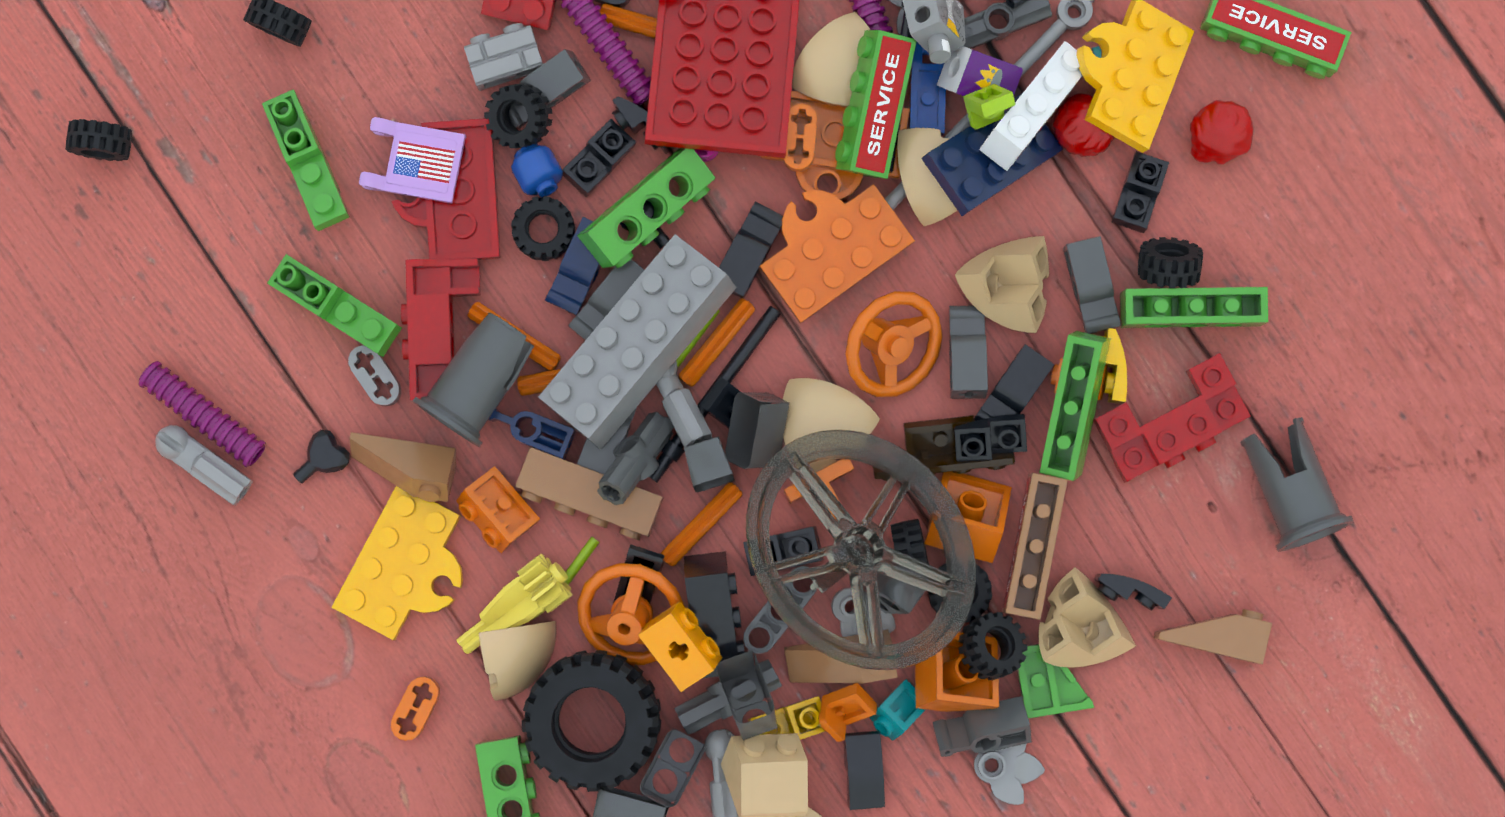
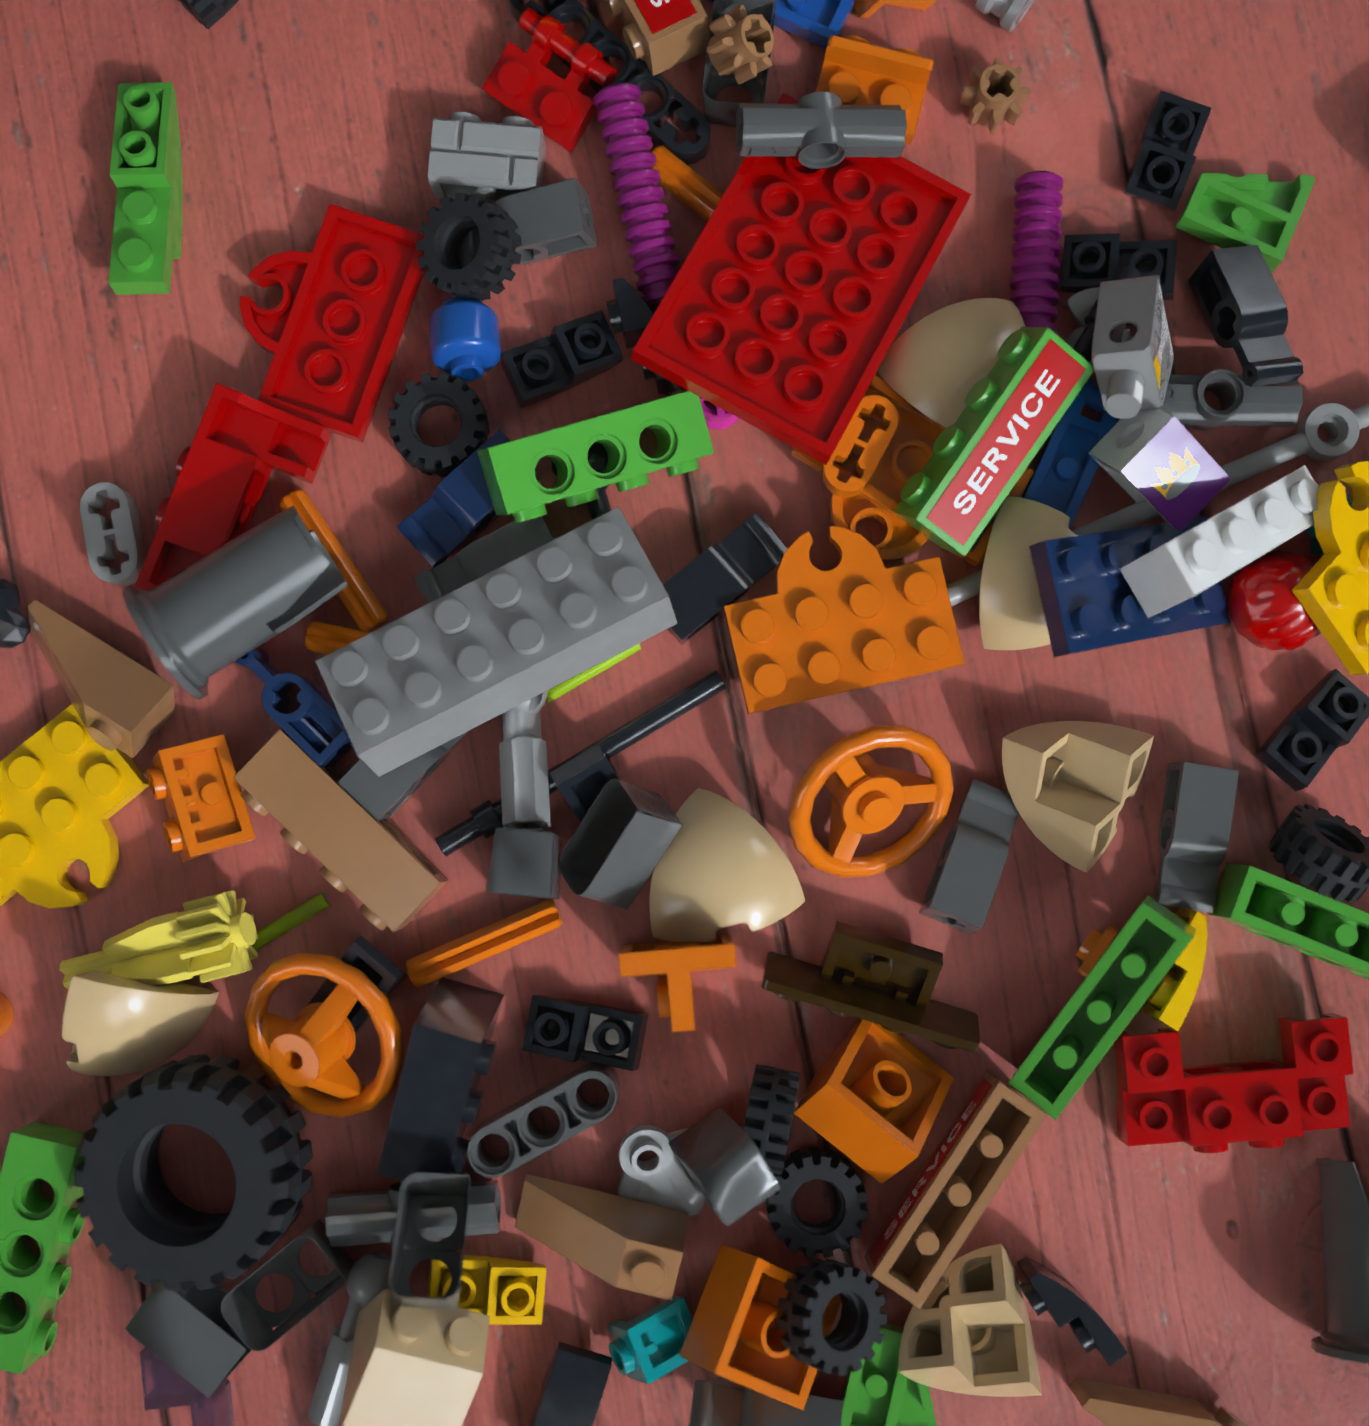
camera: 20 degrees right, 0 degrees up
(334, 305) = (95, 409): bright green slope -> none
(420, 163) = (304, 256): lavender flag -> none
(635, 458) = (421, 812): dark grey piece -> none
(665, 639) = (365, 1123): light orange brick -> none
(716, 342) = (617, 690): orange axle -> none
(845, 708) = (574, 1305): orange bracket -> none
(861, 549) = (689, 1114): clear smoke wheel -> none
(988, 105) = (1162, 508): lime bracket -> none
(990, 436) = (958, 995): black slope -> none
(1016, 385) = (1017, 941): black piece -> none

